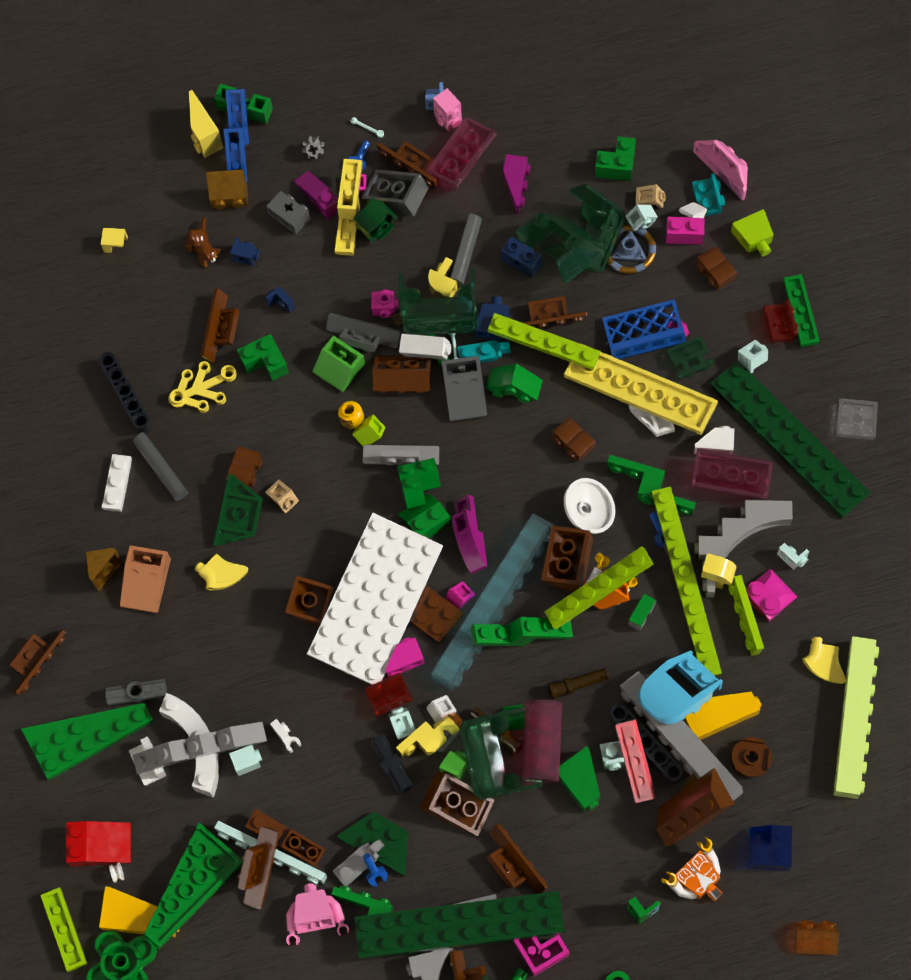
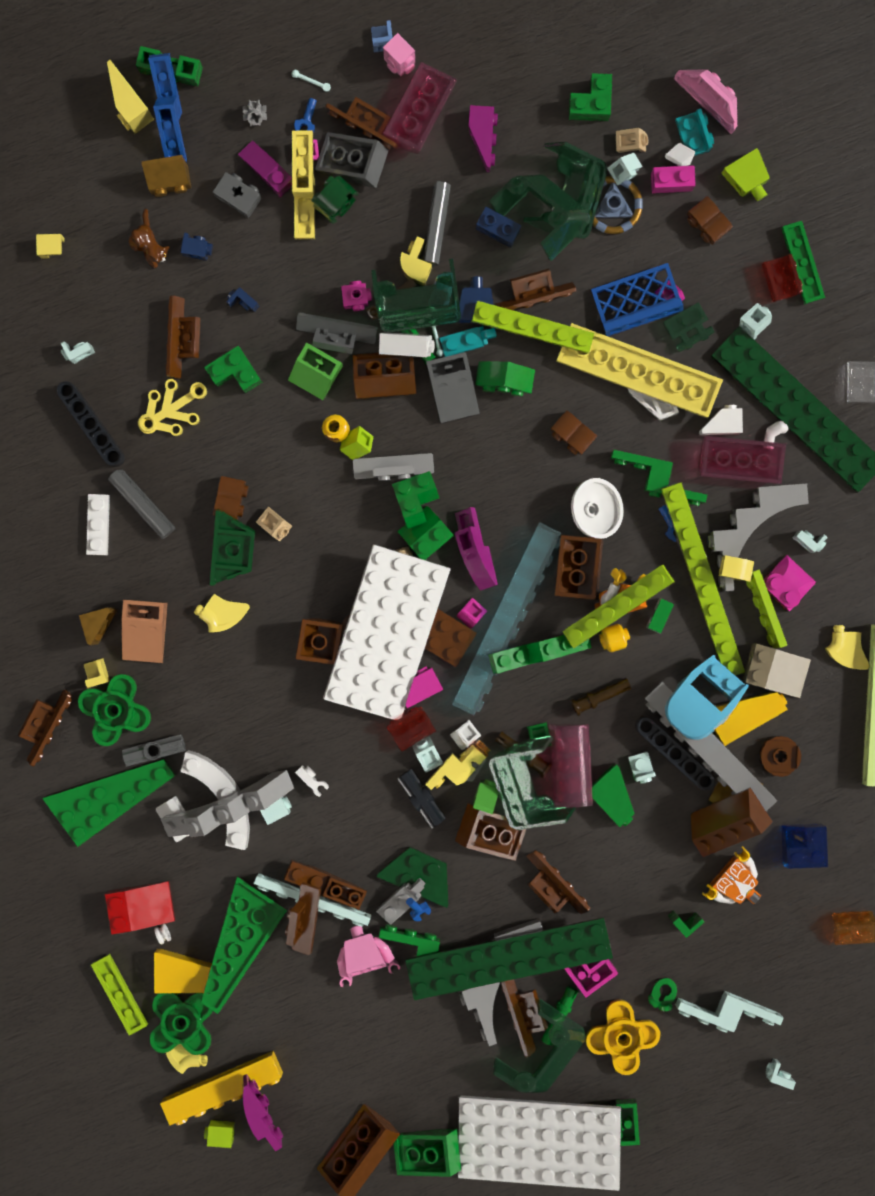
camera: 10 degrees left, 20 degrees up
(91, 646) = (100, 704): none -> green plant
(93, 617) = (96, 673): none -> light yellow panel
(124, 331) = (80, 351): none -> light aqua bracket
(595, 627) = (614, 638): none -> yellow head
(635, 761) = (666, 774): coral tile -> none
(753, 673) = (776, 670): none -> slope
(768, 452) = (774, 430): none -> white arm

